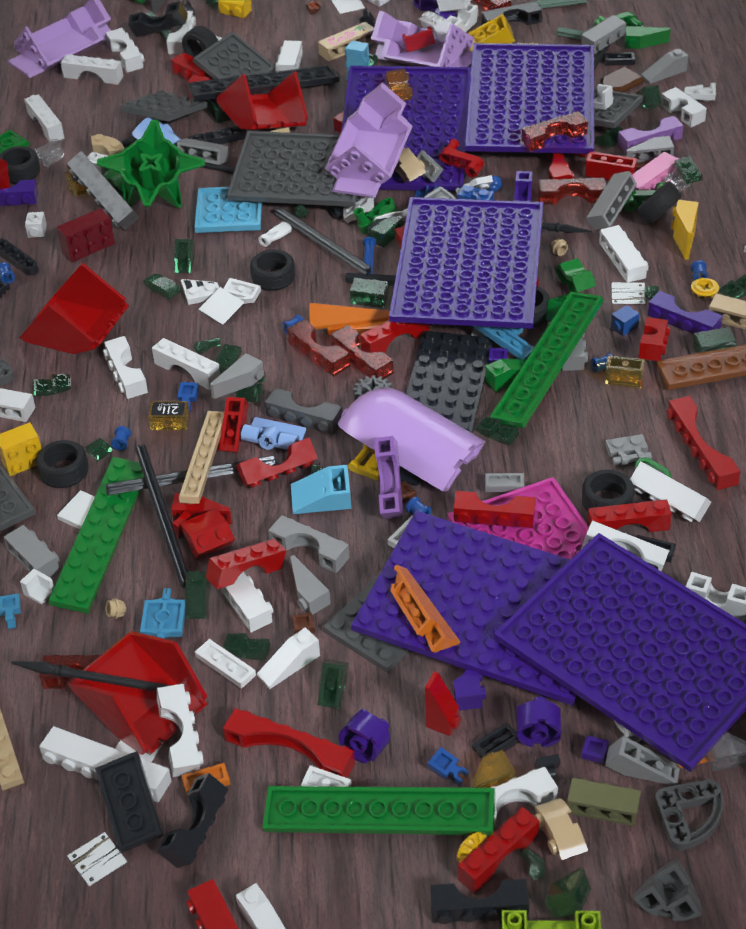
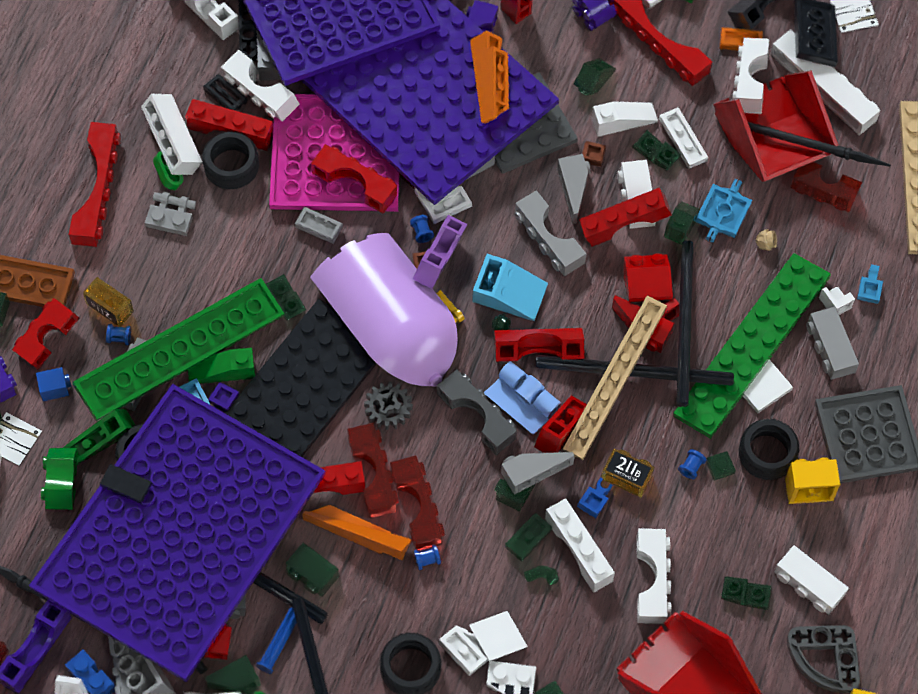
camera: 160 degrees left, 20 degrees up
(520, 261) = (125, 483): none -> black tile
(559, 247) = (42, 545): tan plate -> none

